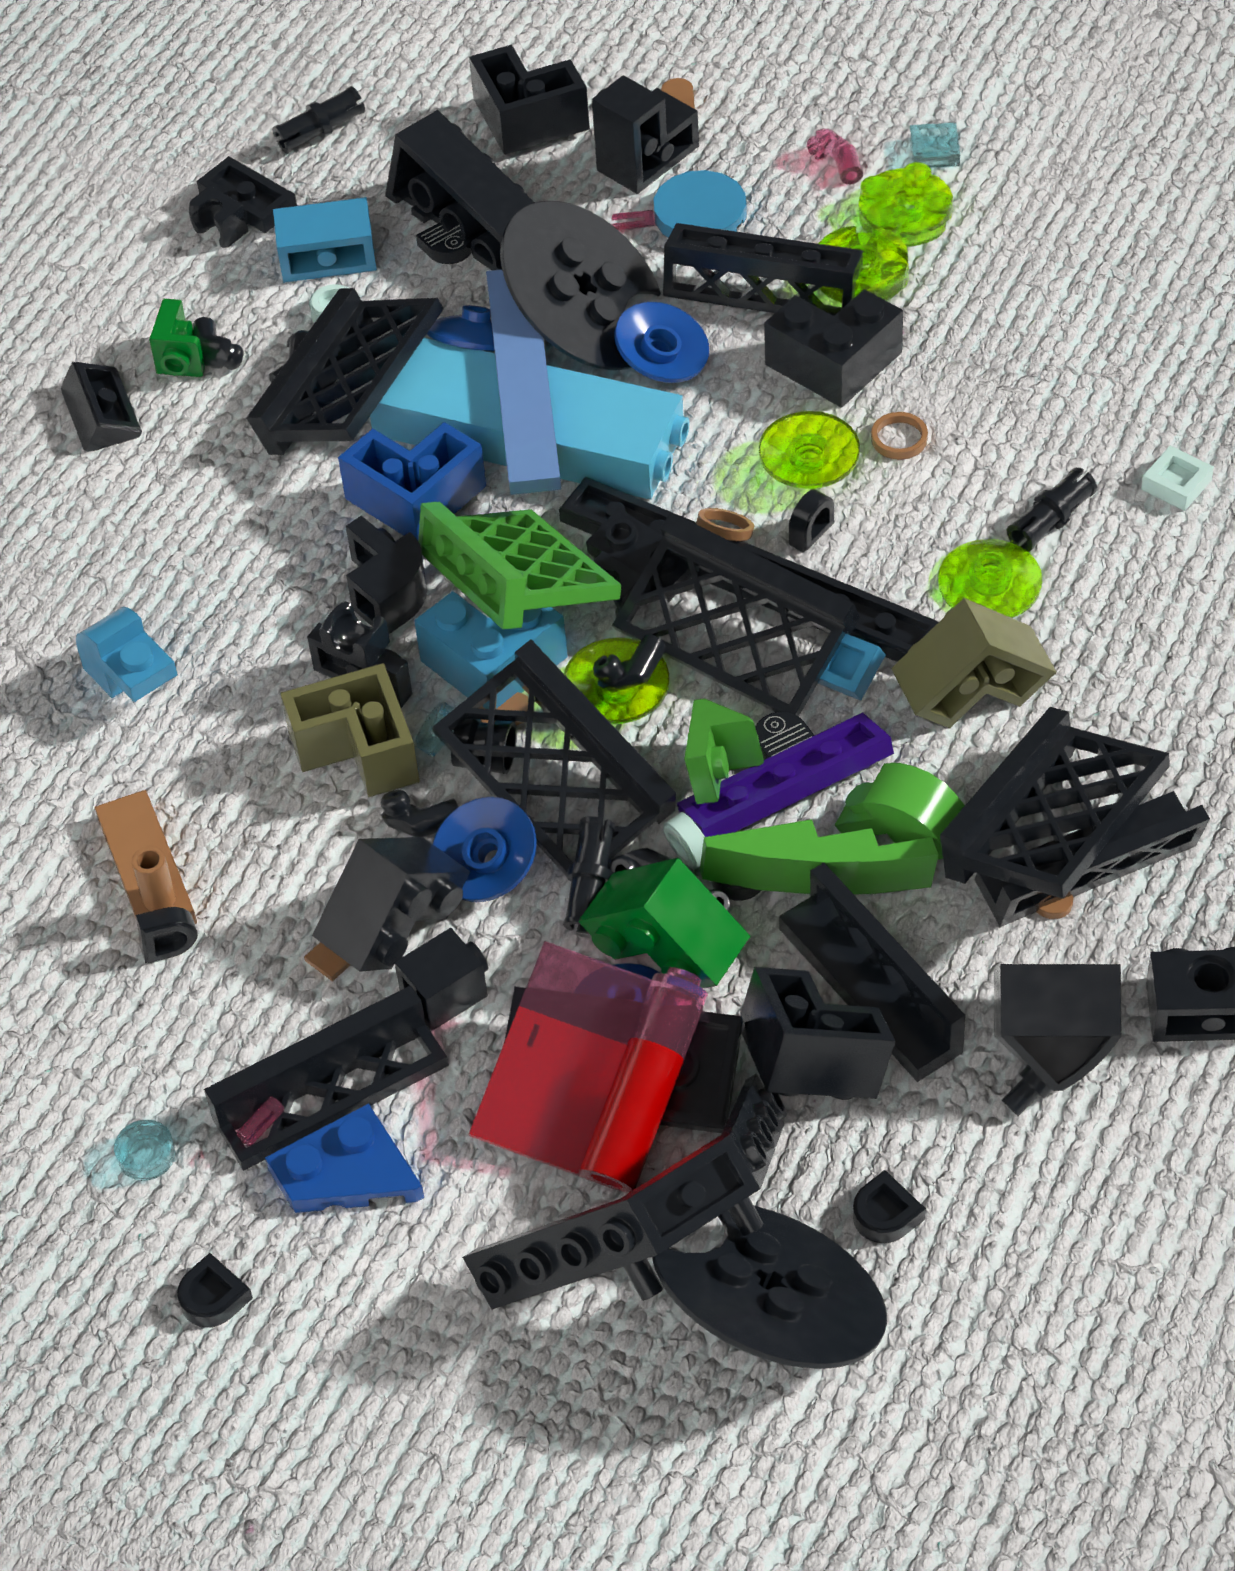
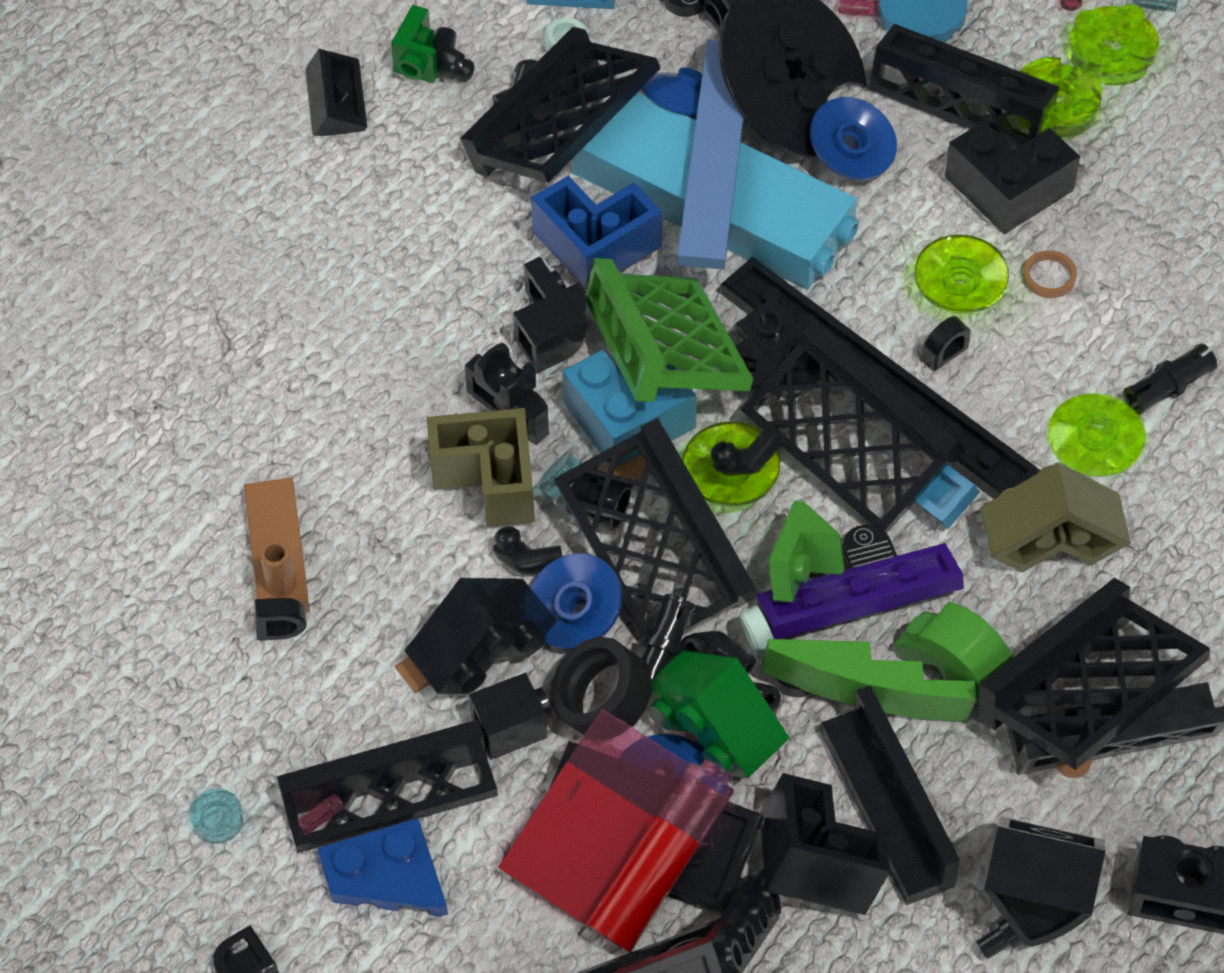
camera: 10 degrees right, 5 degrees up
(124, 656) = (301, 348): dark azure brick -> none
(515, 903) = (580, 668): none -> black tyre
(728, 516) = (876, 323): medium nougat piece -> none

